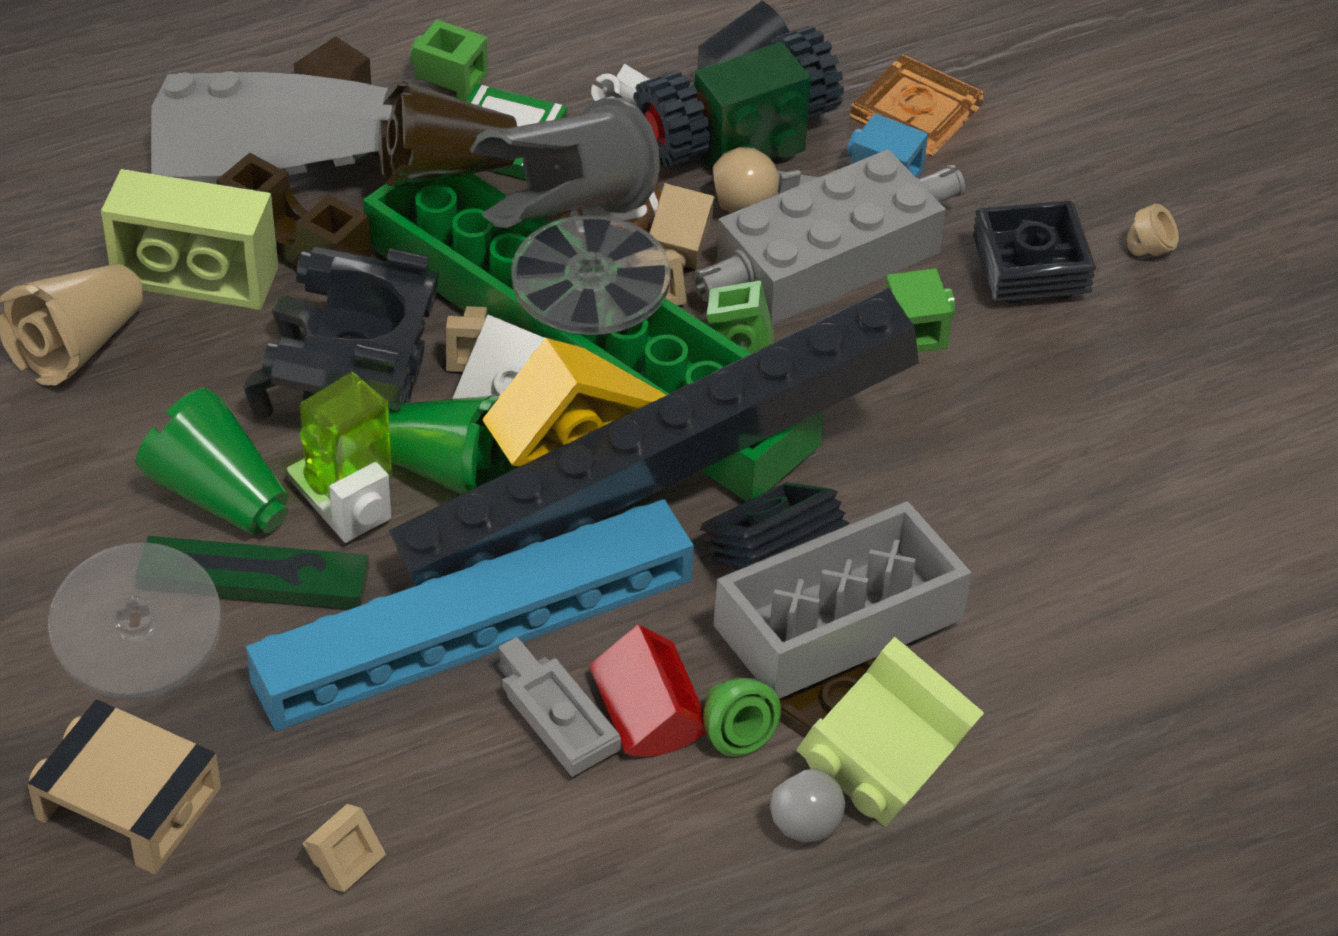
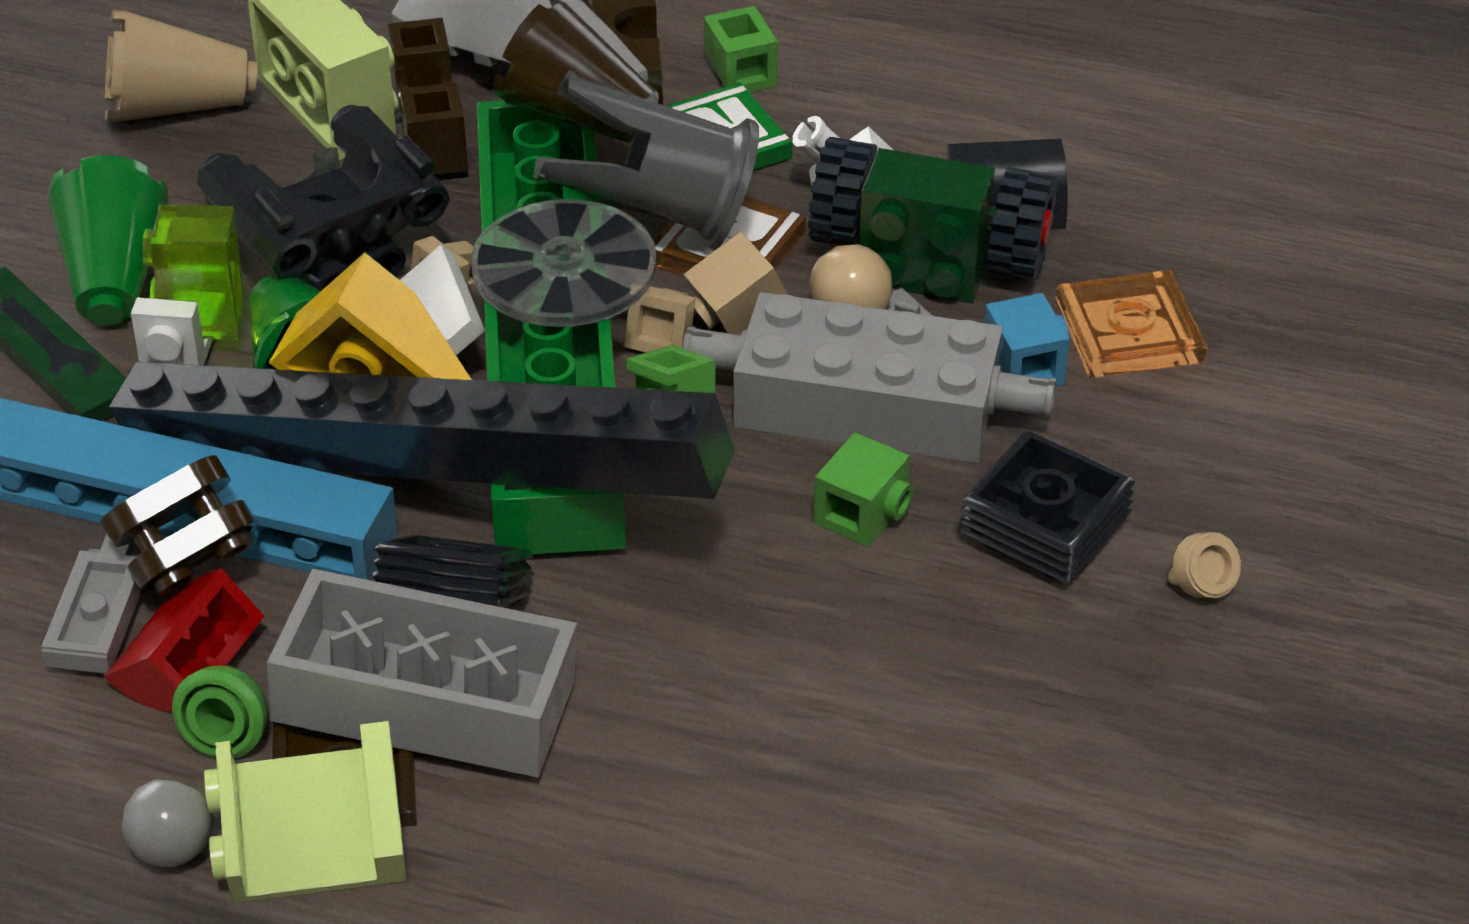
camera: 45 degrees right, 5 degrees down
(601, 609) = (169, 561): none -> dark brown brick

